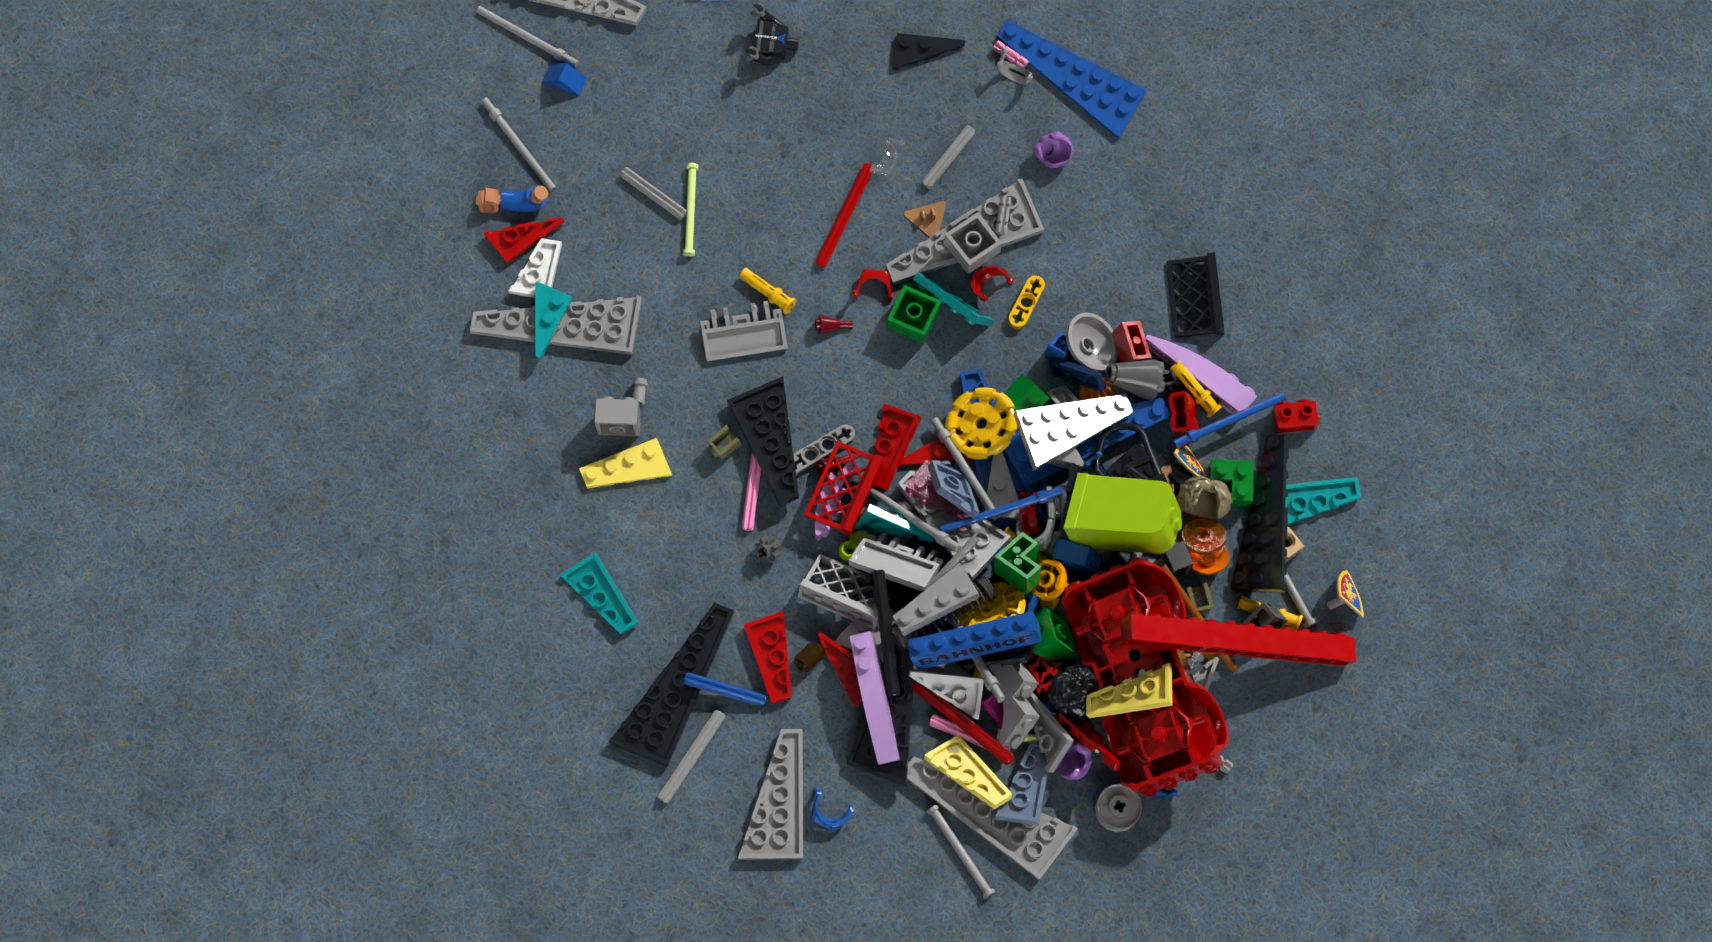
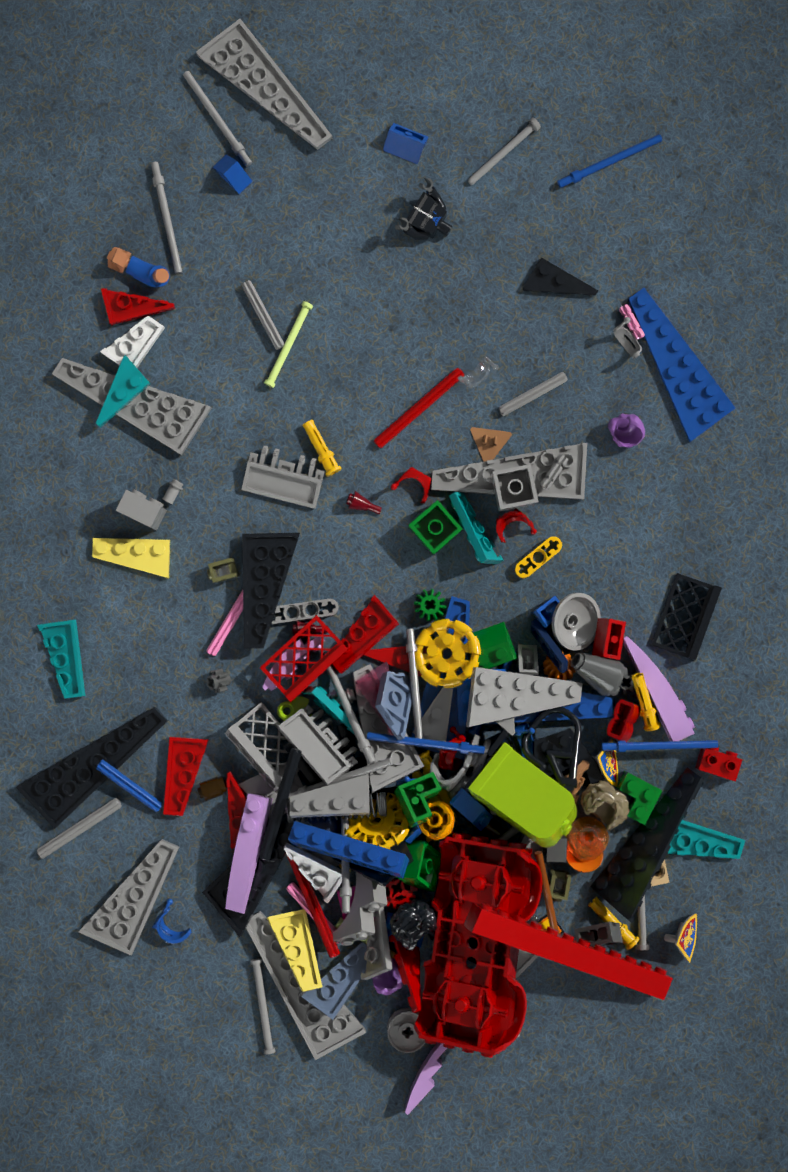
camera: 20 degrees right, 15 degrees up
(949, 393) = (428, 598): none -> green gear
(1136, 694) = (459, 961): light yellow wing -> none
(1158, 850) = (423, 1082): none -> lavender slope

